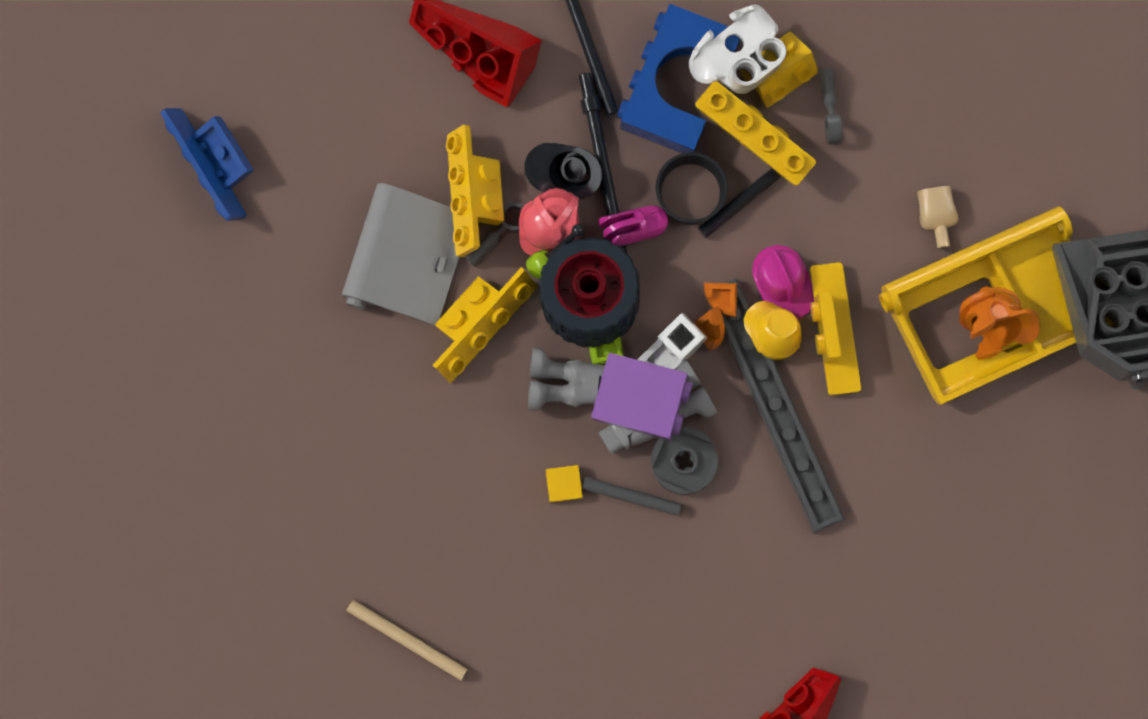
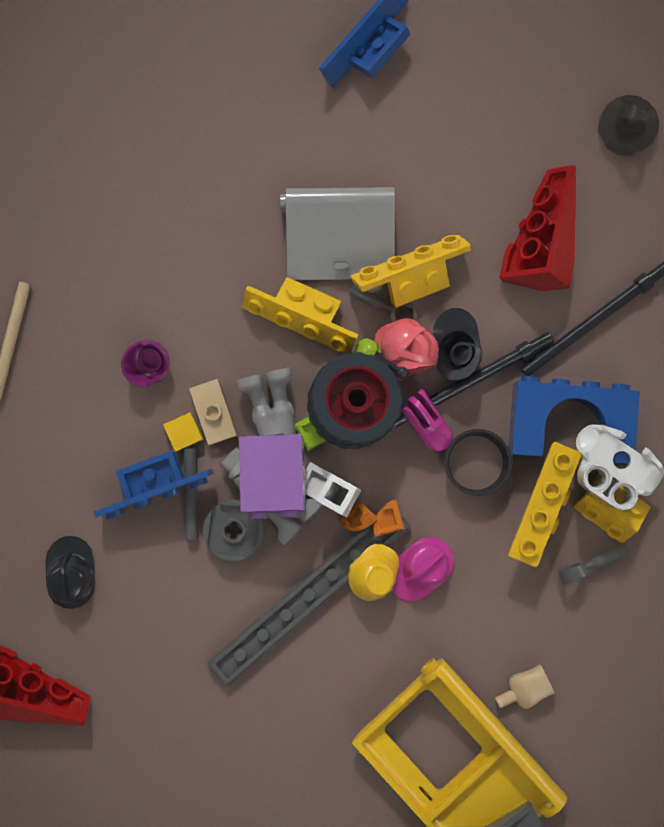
camera: 75 degrees right, 5 degrees up
(479, 498) = (145, 363): none -> magenta hair
(552, 446) = (213, 412): none -> tan plate
(604, 530) = (149, 478): none -> blue bracket
(675, 650) = (70, 572): none -> black piece
(739, 203) = (479, 508): black bar -> none
(835, 329) = (391, 628): yellow bracket -> none
(999, 319) = (444, 772): orange helmet -> none

